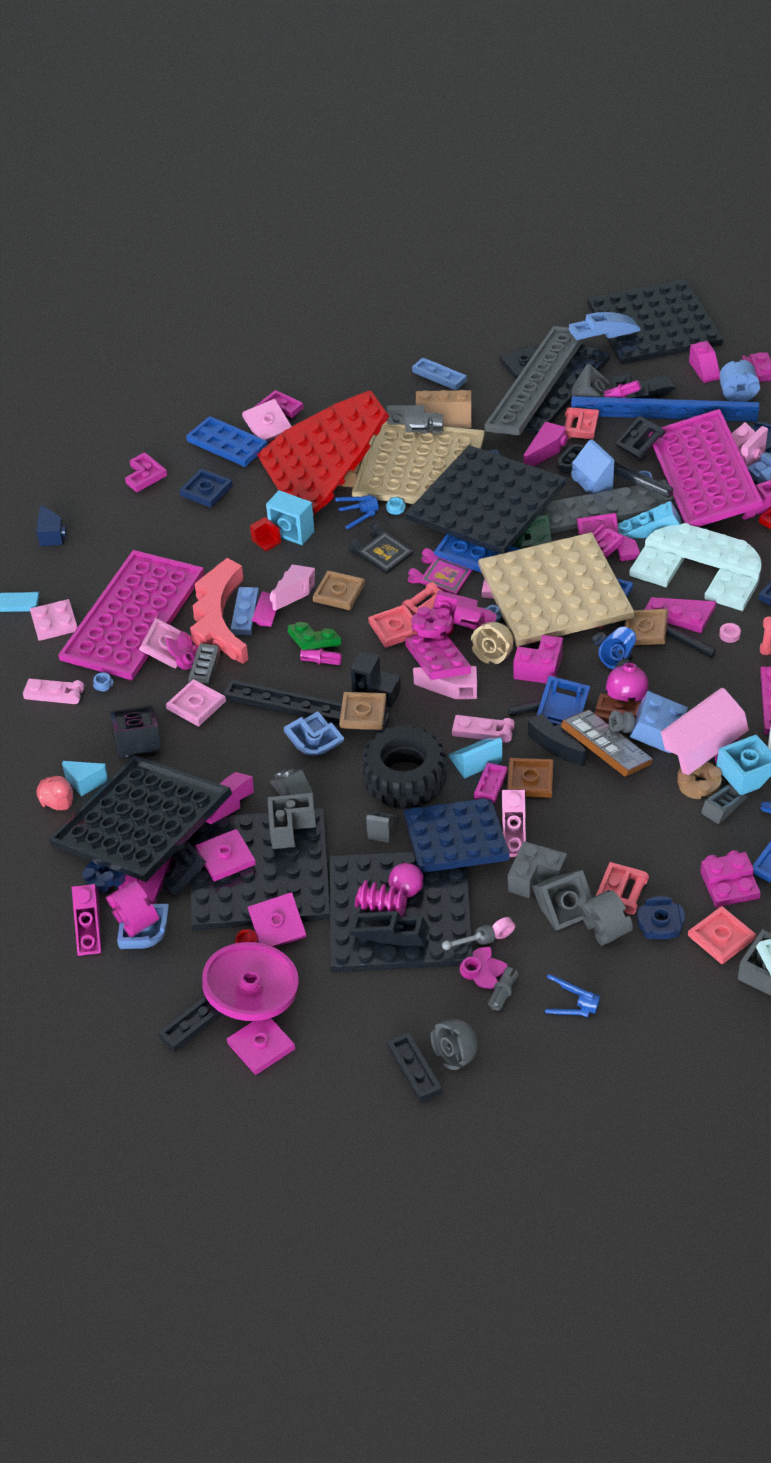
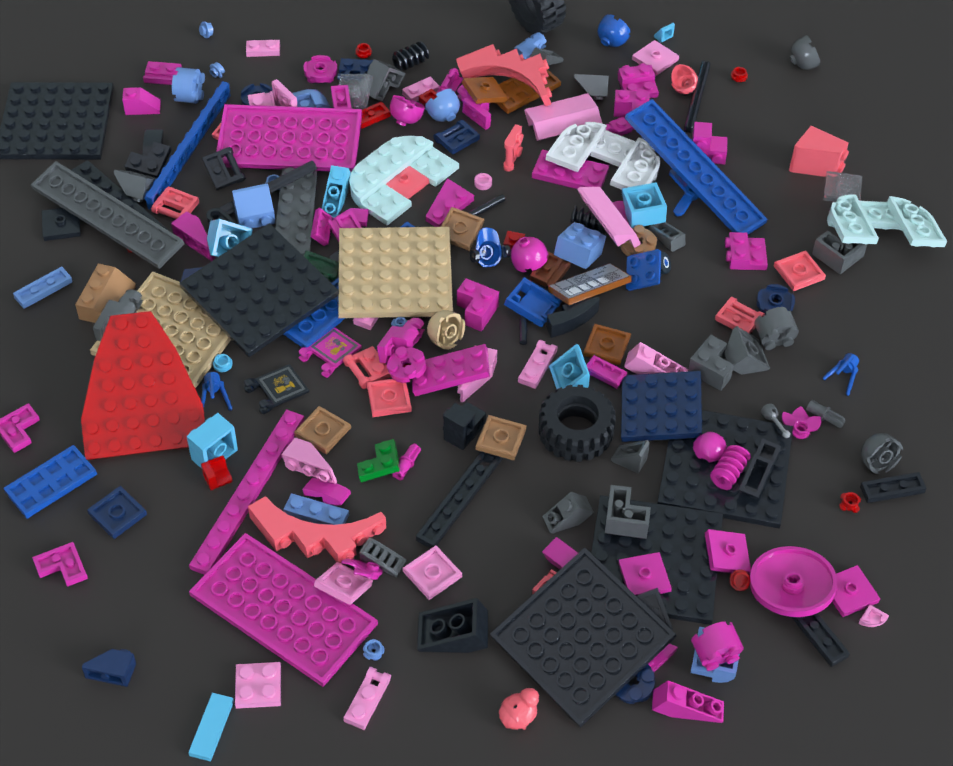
camera: 80 degrees left, 5 degrees up
(84, 775) = (504, 683): medium azure slope -> none
(232, 1069) = (873, 617): none -> bright pink tile
(255, 560) = (246, 493): none -> dark pink plate
(266, 420) = (41, 438): bright pink plate -> none
(313, 735) = (516, 482): medium blue brick -> none
(381, 1023) = (852, 498): none -> red plate
(503, 928) = (766, 397): bright pink tile -> none
(542, 456) = (225, 235): none -> medium azure slope
(604, 323) = (63, 148): medium blue slope -> none
(621, 721) = (576, 263): dark grey wheel -> none
(623, 390) = (159, 160): dark pink axle -> none
(654, 674) = (512, 237): none -> red plate
(670, 796) = (646, 268): none -> blue plate
(694, 574) = (408, 182): none -> coral plate

